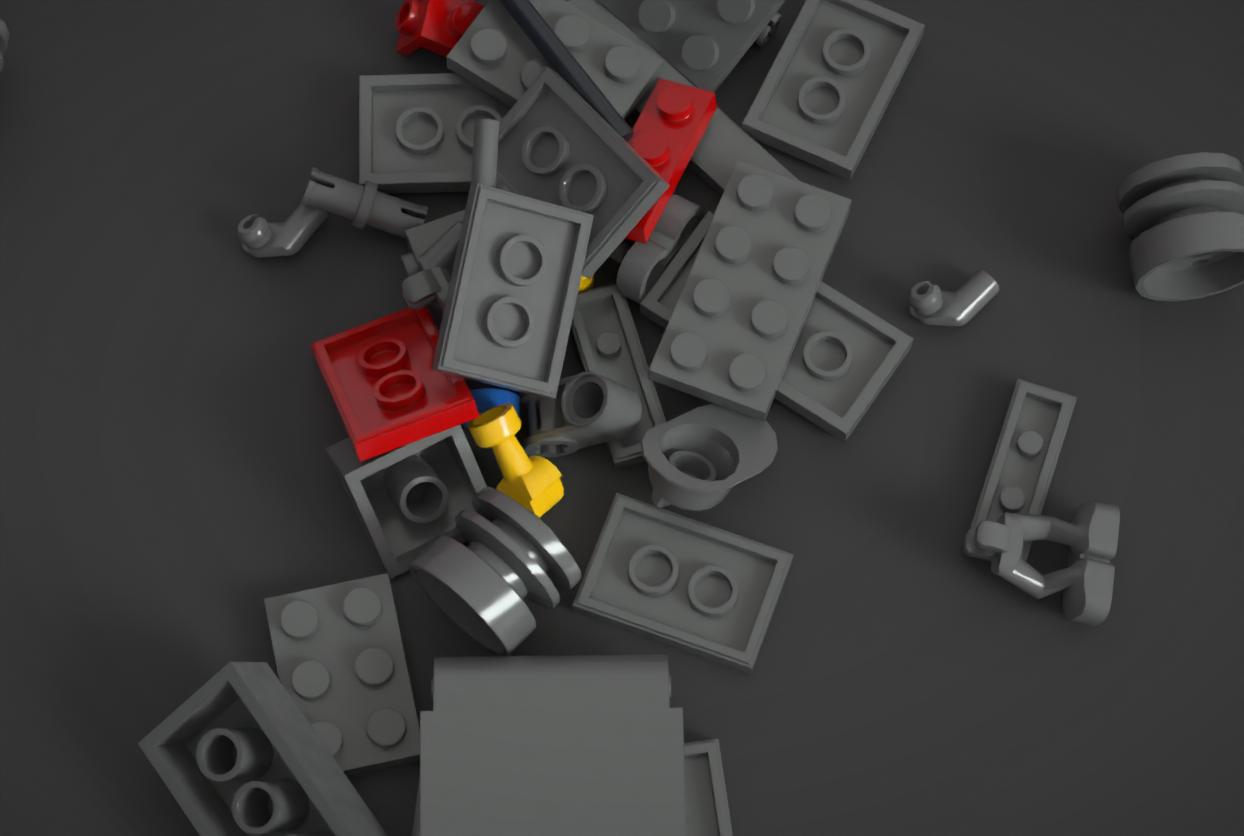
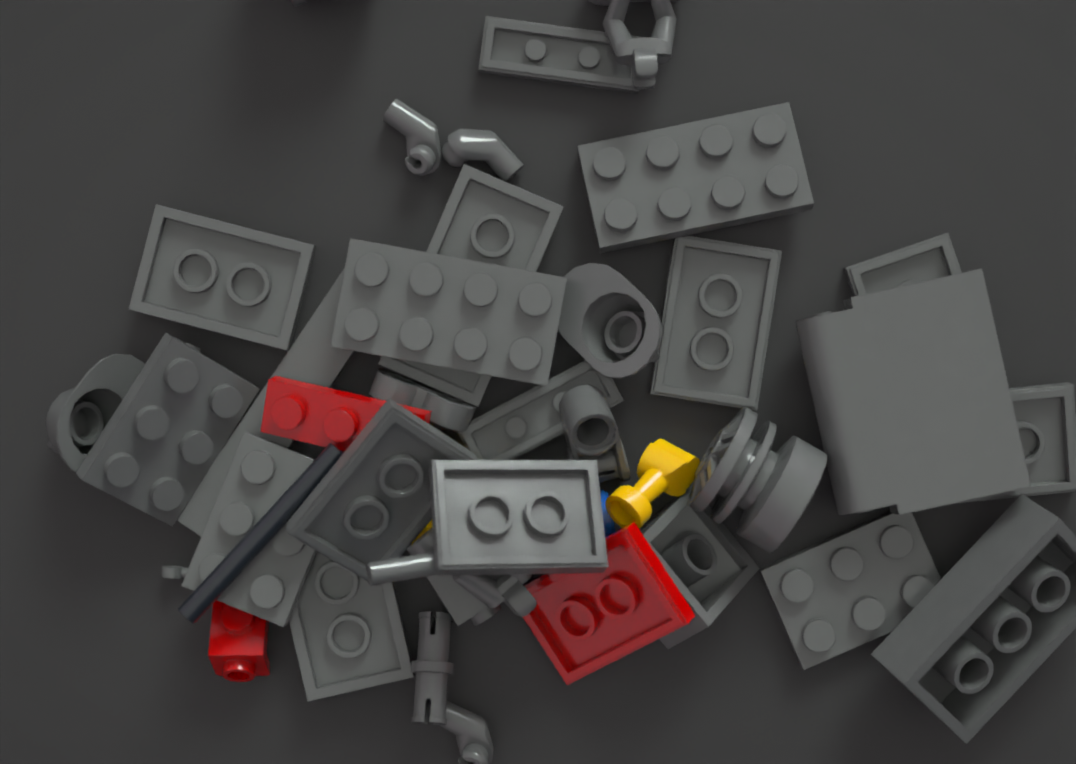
camera: 105 degrees left, 20 degrees up
(854, 587) = (695, 177): none -> dark grey plate
(931, 367) = (481, 146): none -> dark grey arm

